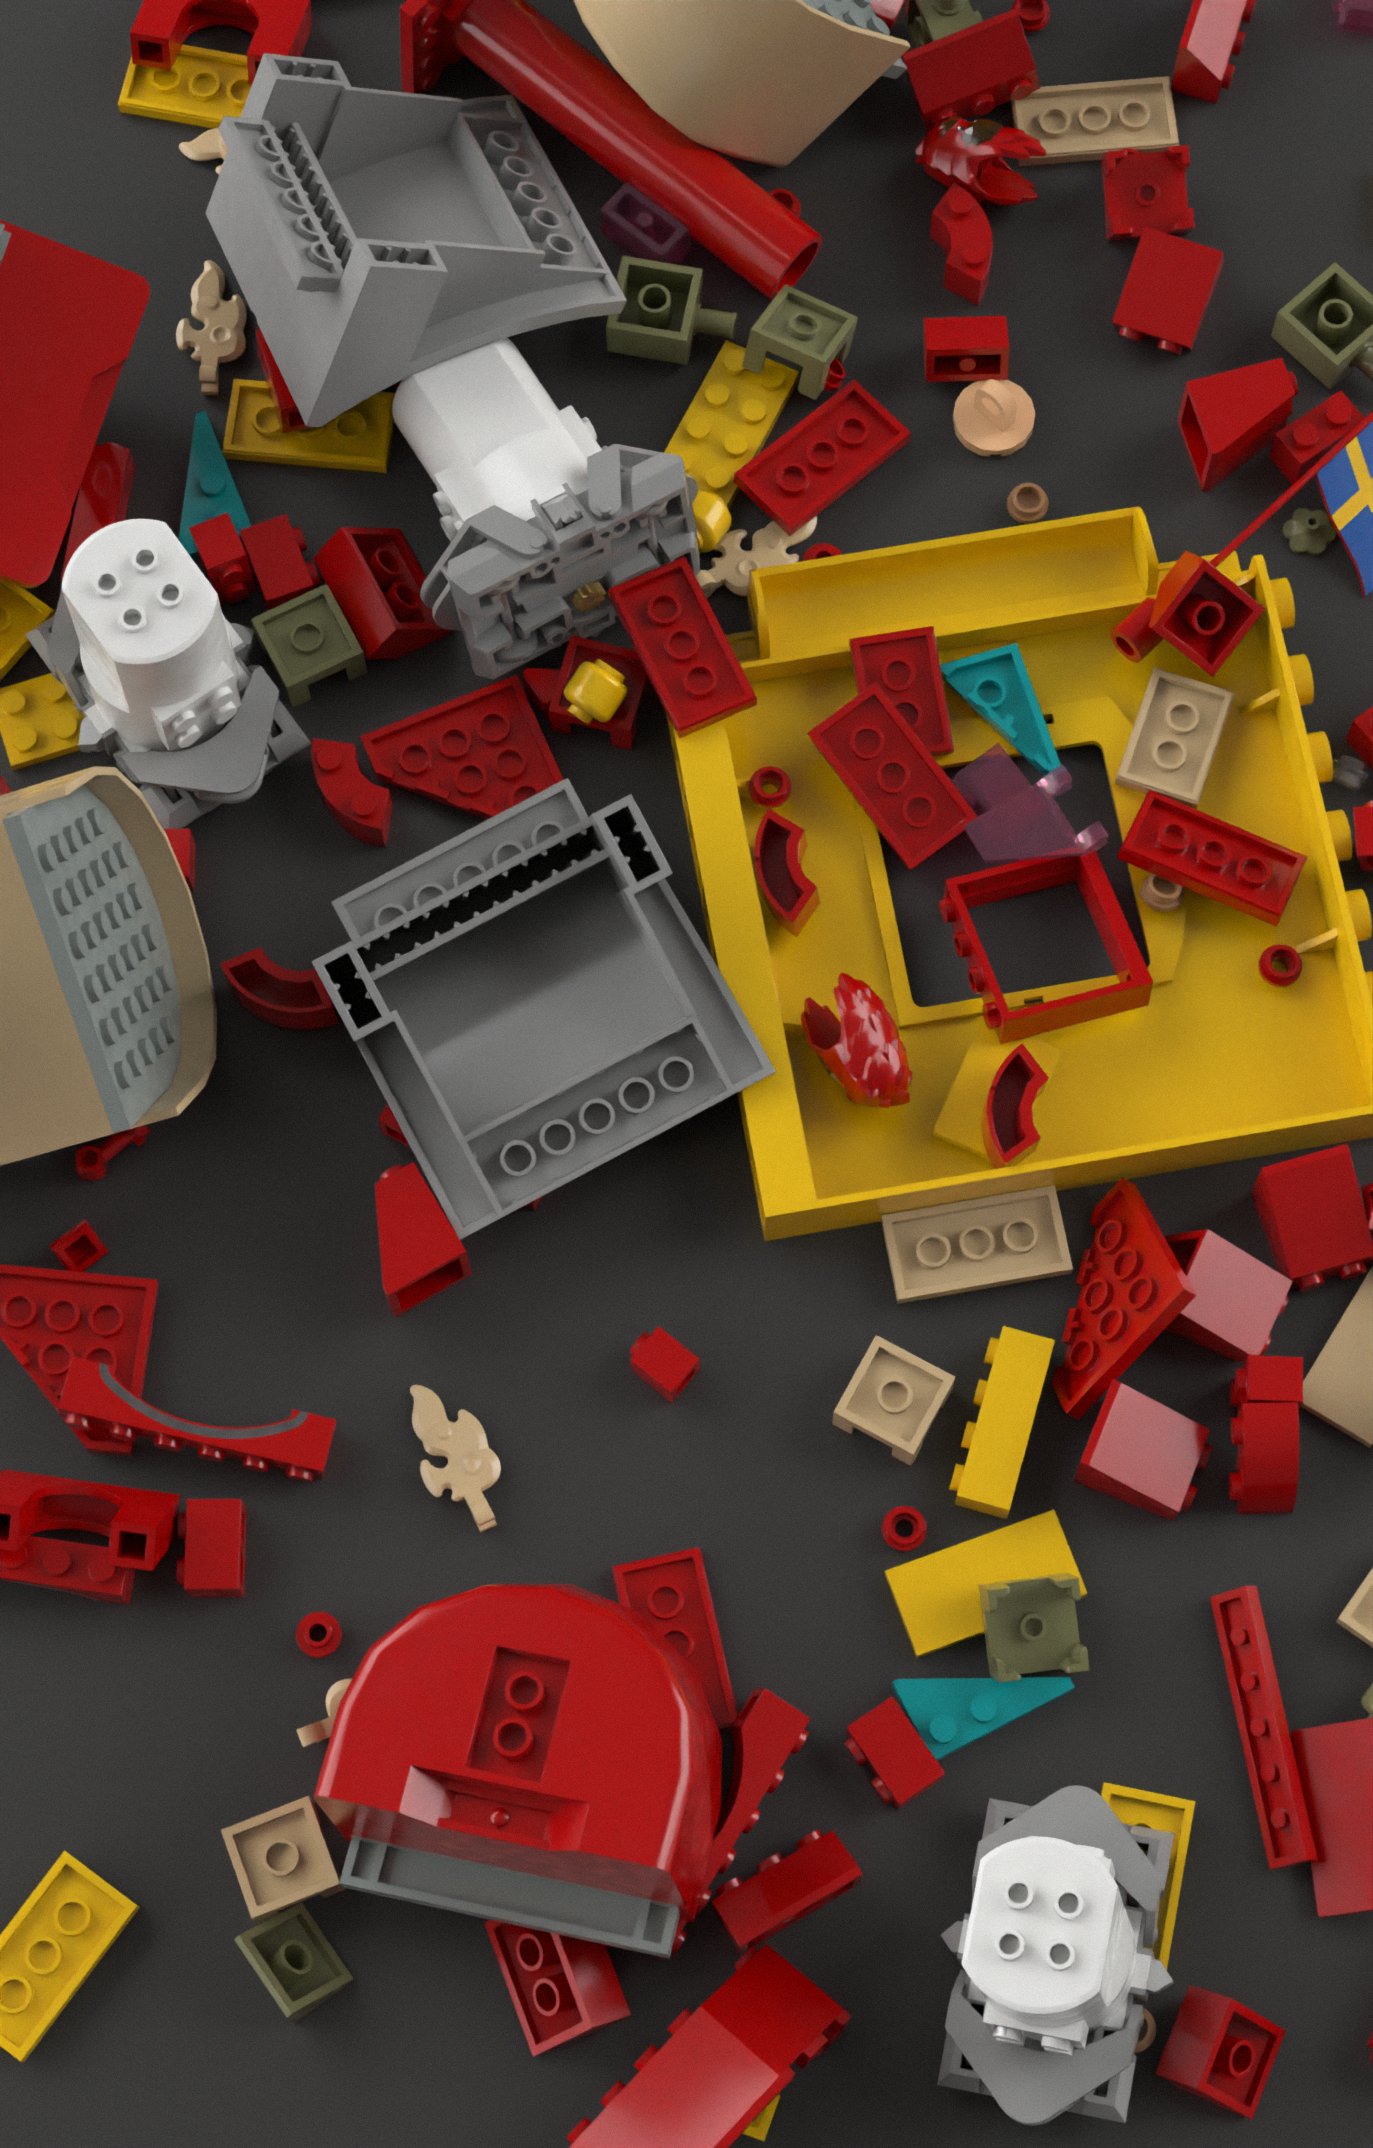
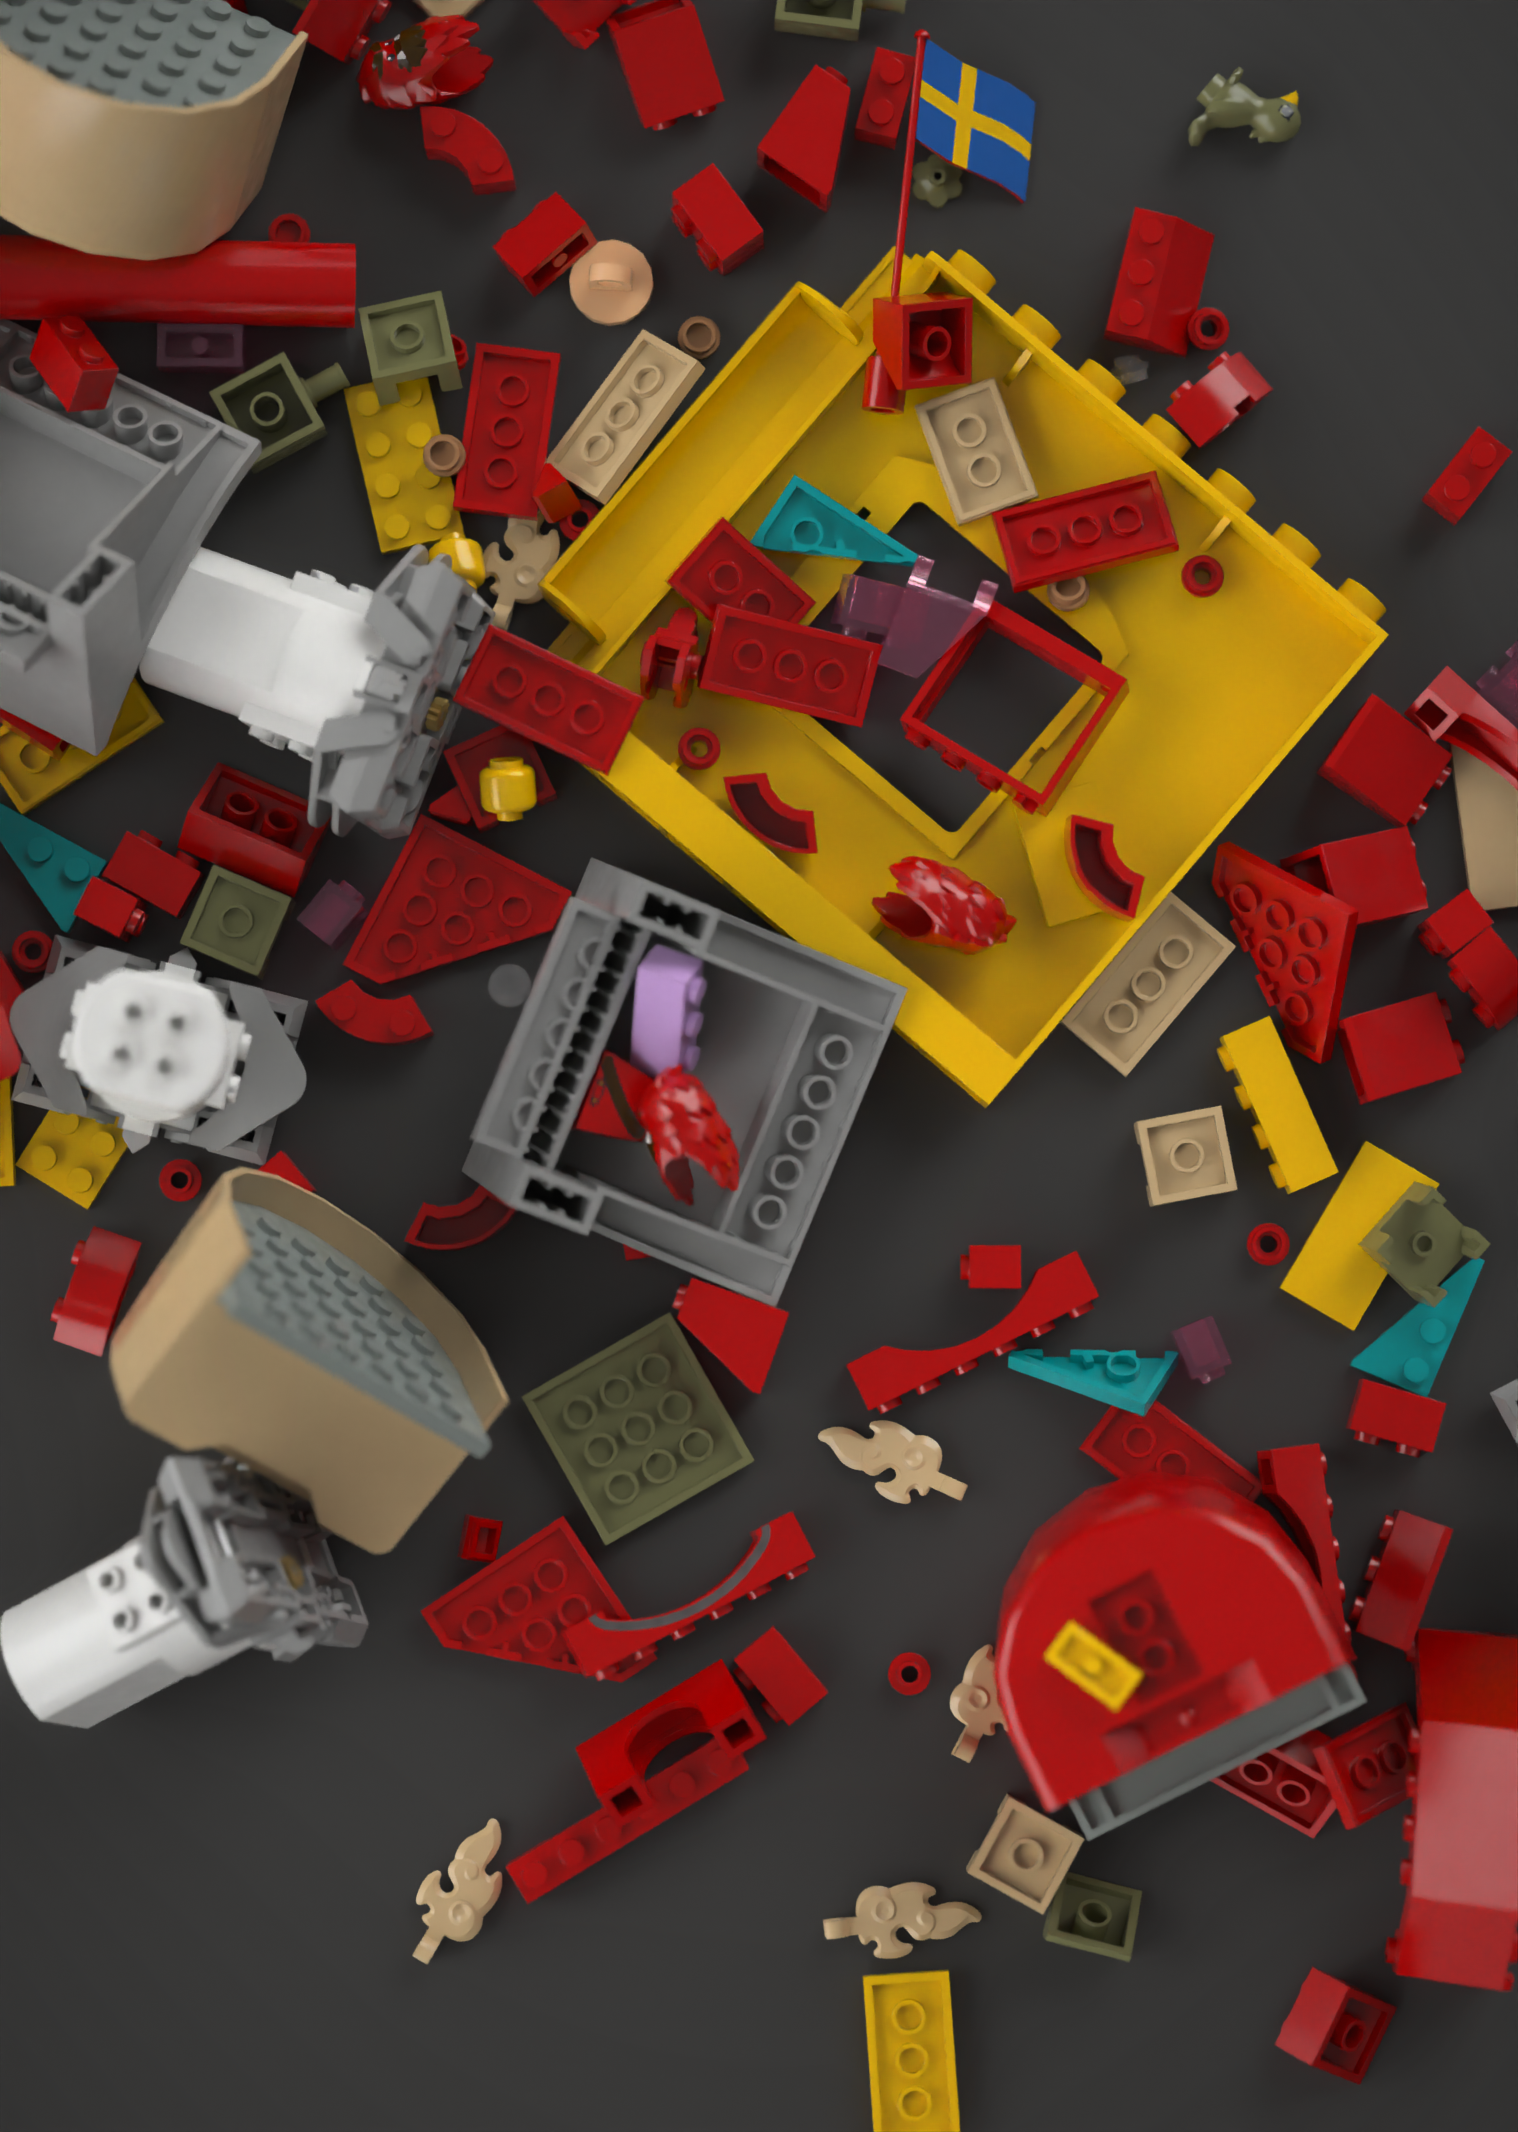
camera: 40 degrees left, 15 degrees up
(151, 1823) = (906, 1905): none -> tan piece
(274, 1263) = (638, 1428): none -> olive plate
(384, 688) = (334, 913): none -> clear pink brick
(454, 1698) = (1093, 1665): none -> yellow plate
(473, 980) = (613, 1101): none -> red torso
(502, 1035) = (683, 1125): none -> red head
(538, 151) = (73, 363): none -> red brick
(566, 933) = (667, 1011): none -> lavender brick
(620, 2020) = (1368, 1765): none -> red tile
(680, 1522) = (1102, 1375): none -> teal wing
(694, 1423) = (1052, 1292): none -> red arch
(759, 433) = (444, 455): none -> medium nougat plate
(778, 1566) = (1201, 1349): none -> clear pink brick
(803, 701) = (672, 658): none -> red hinge
(817, 523) = (554, 495): none -> red slope
(921, 510) = (625, 416): none -> tan plate
(1110, 423) = (716, 220): none -> red brick

